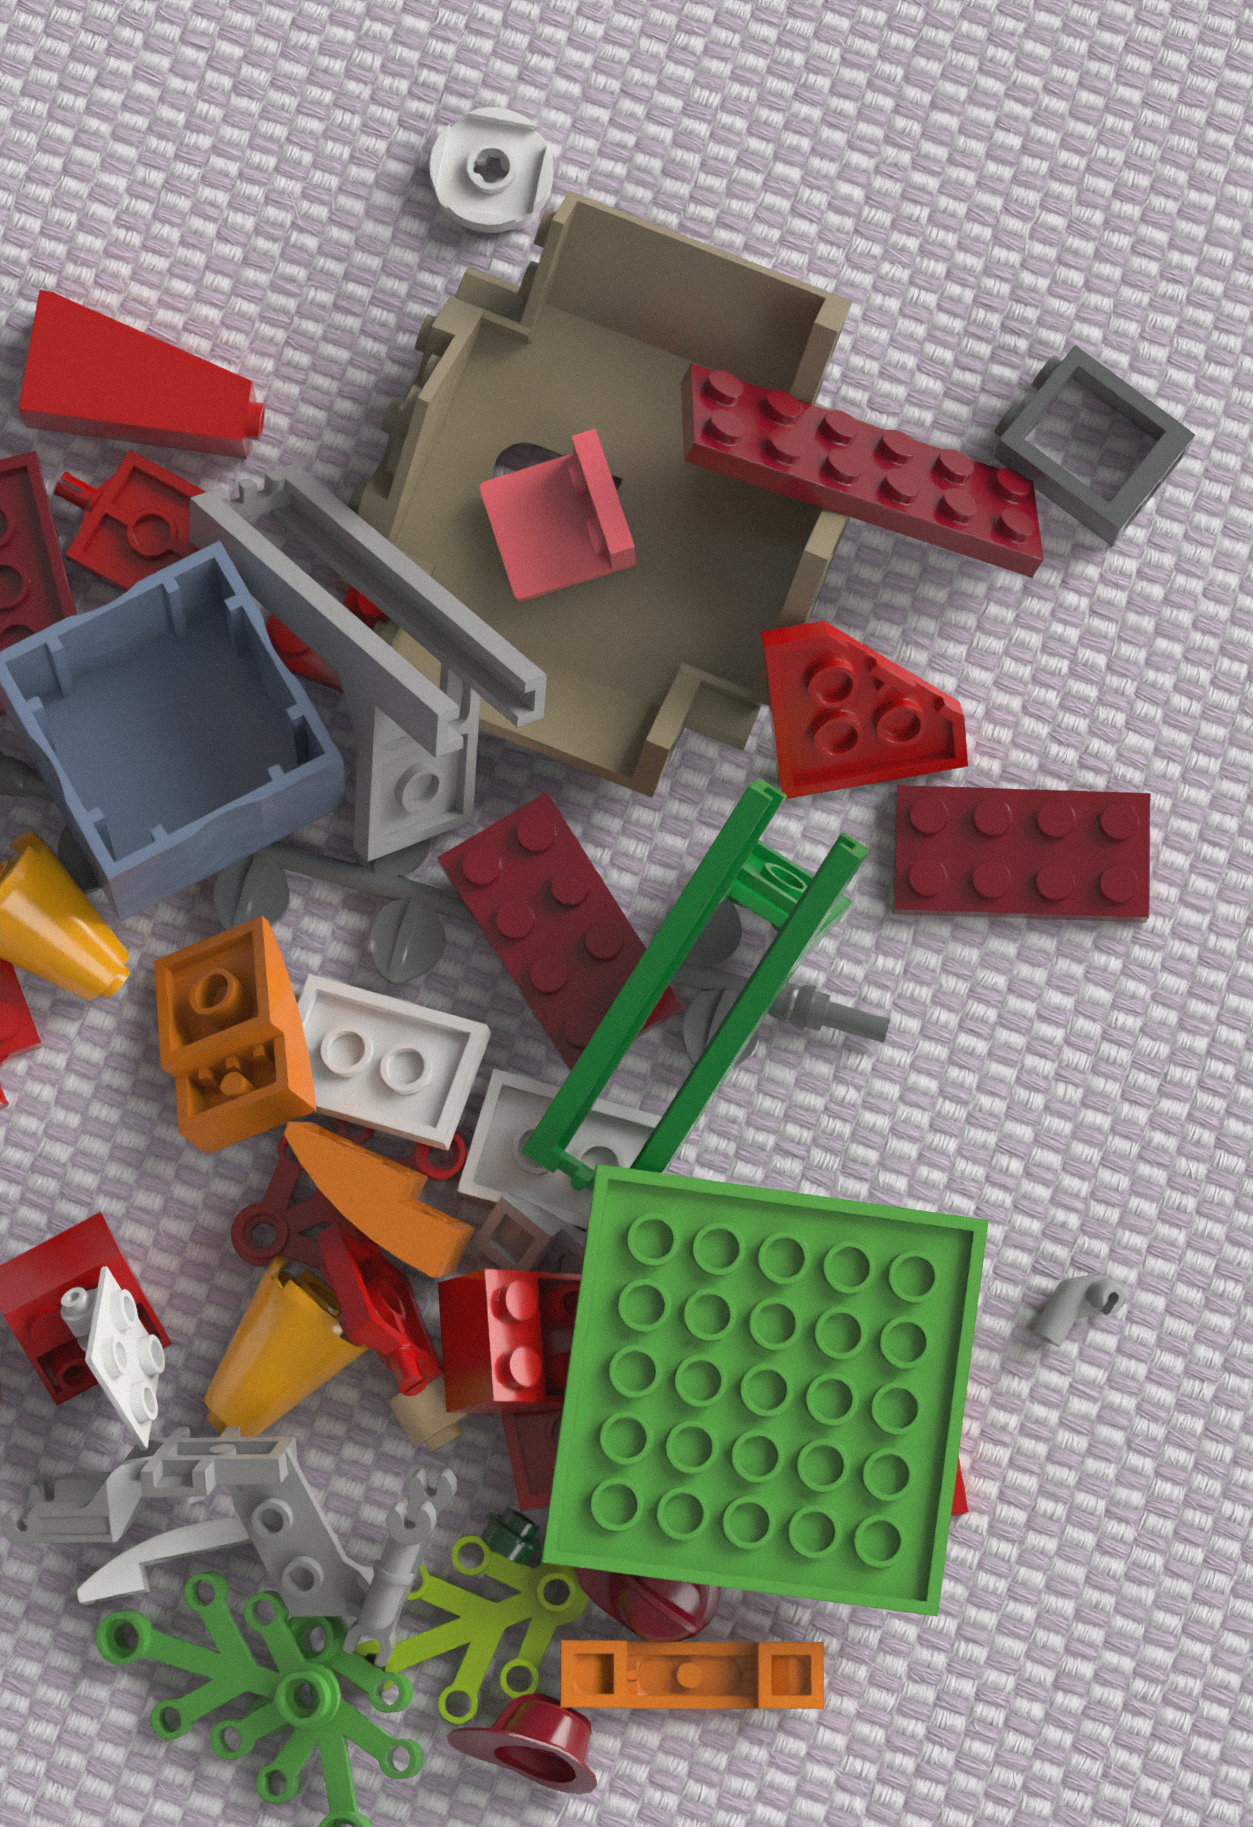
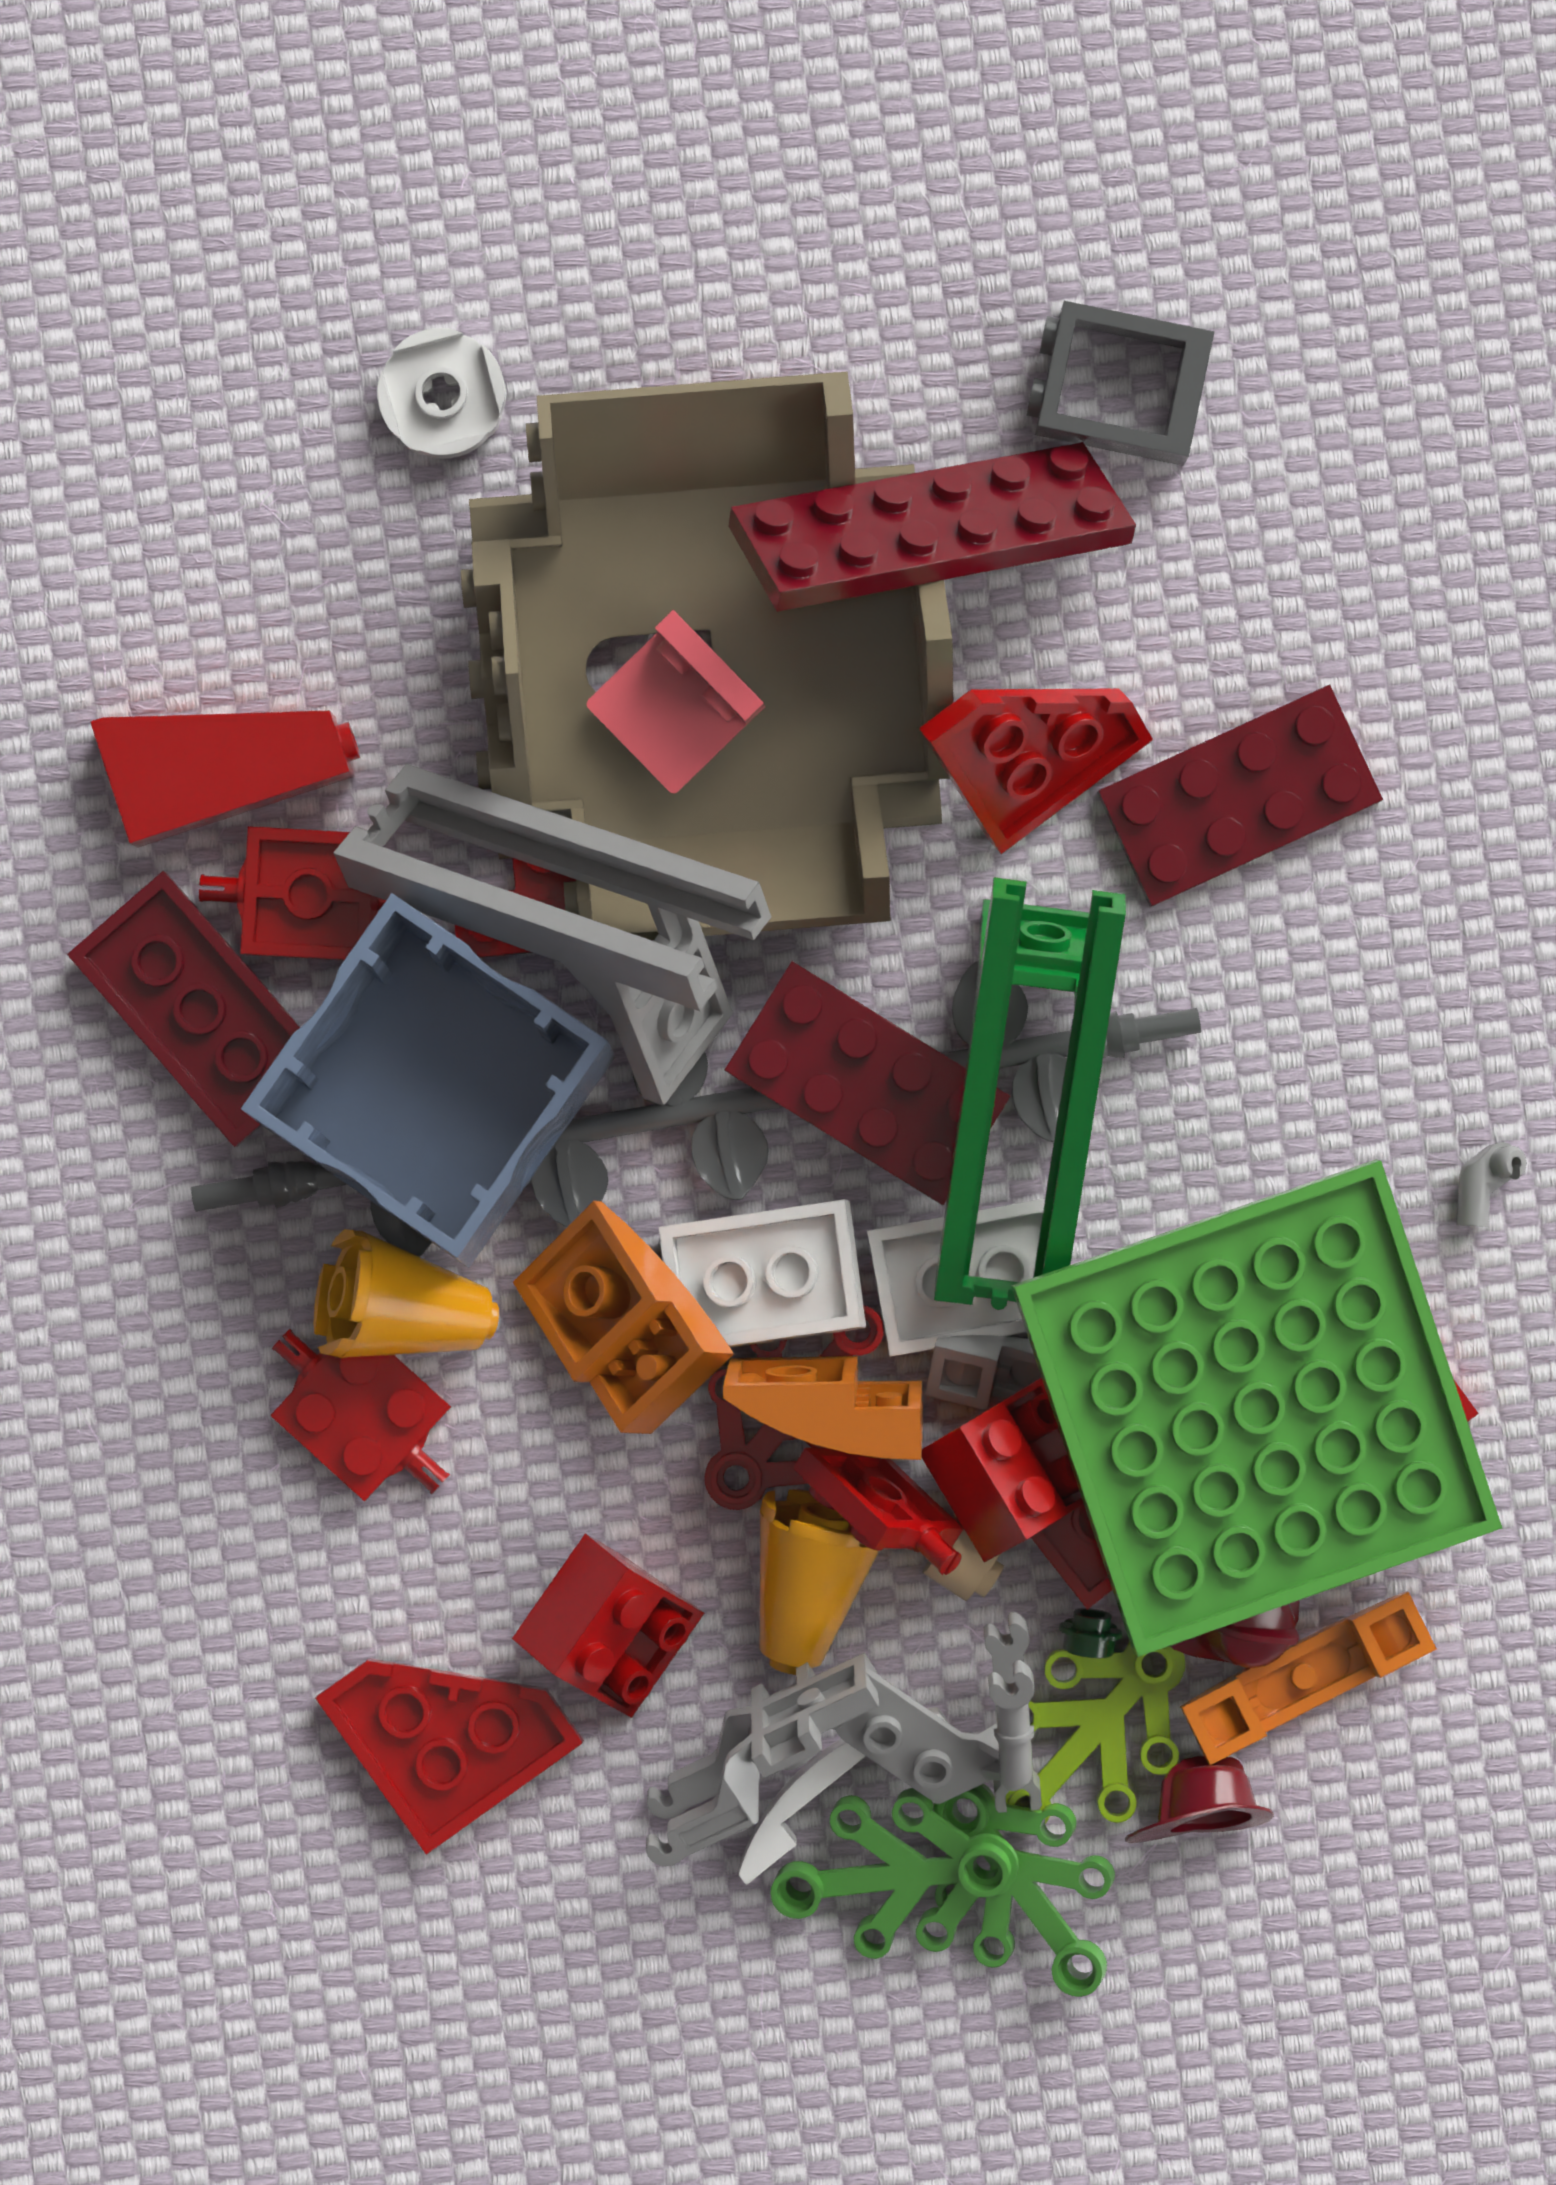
camera: 25 degrees left, 10 degrees up
(117, 1351) = (673, 1654): white hinge -> none

